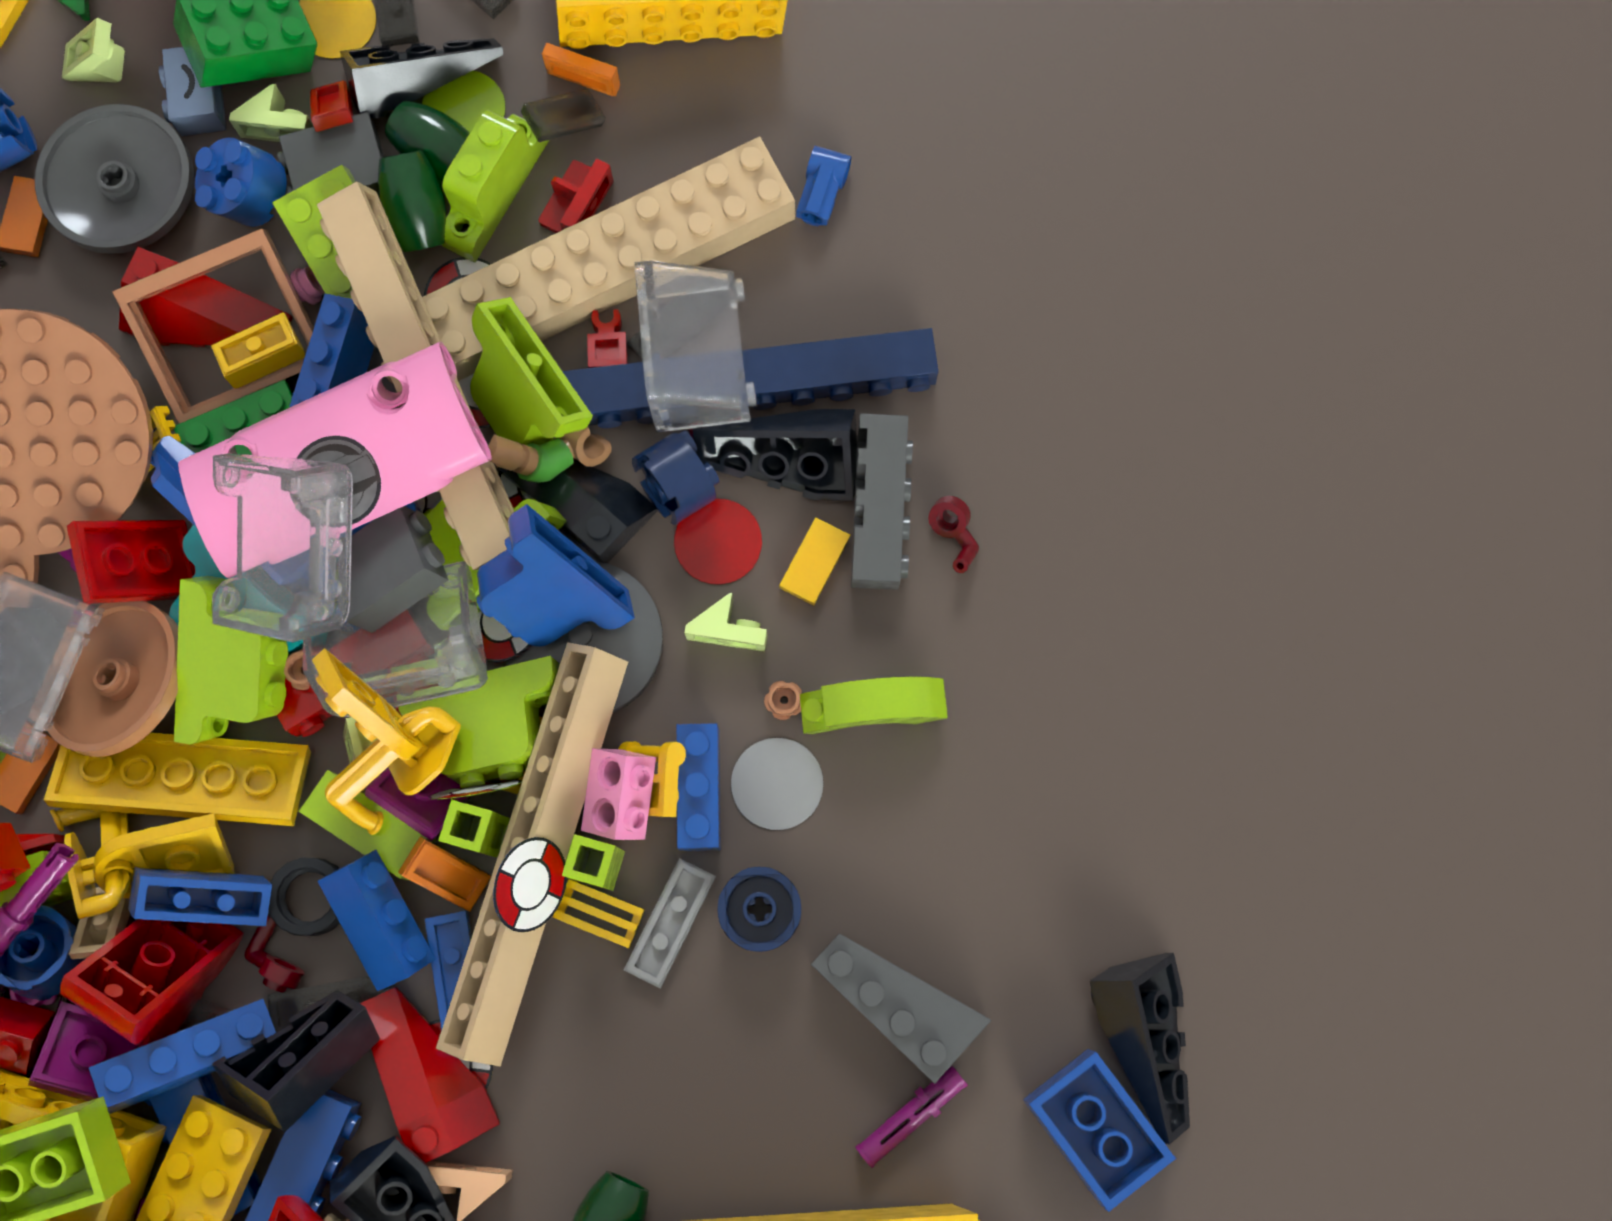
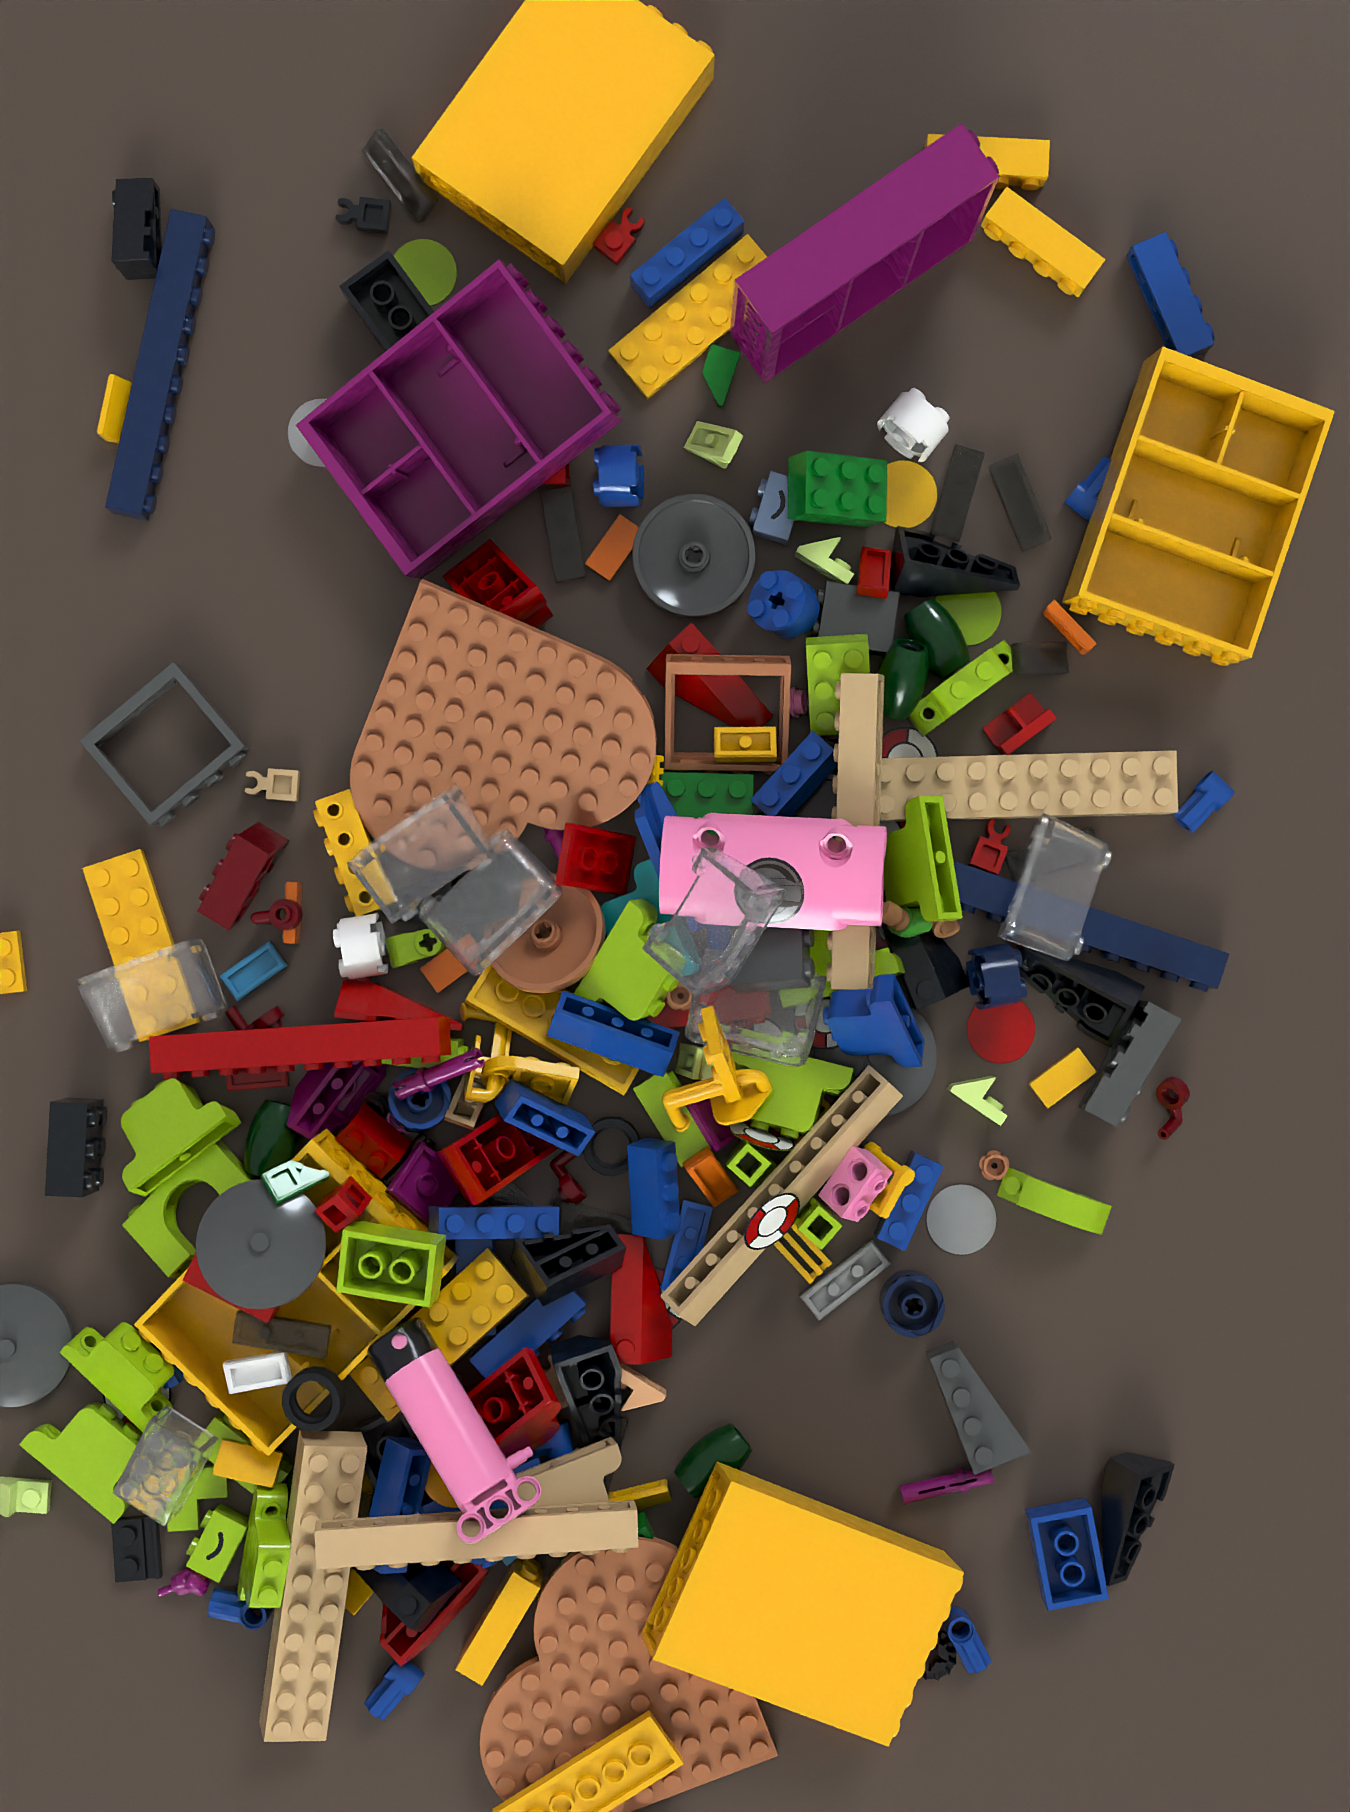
camera: 25 degrees right, 10 degrees up
(238, 754) = (612, 1034): none -> blue brick

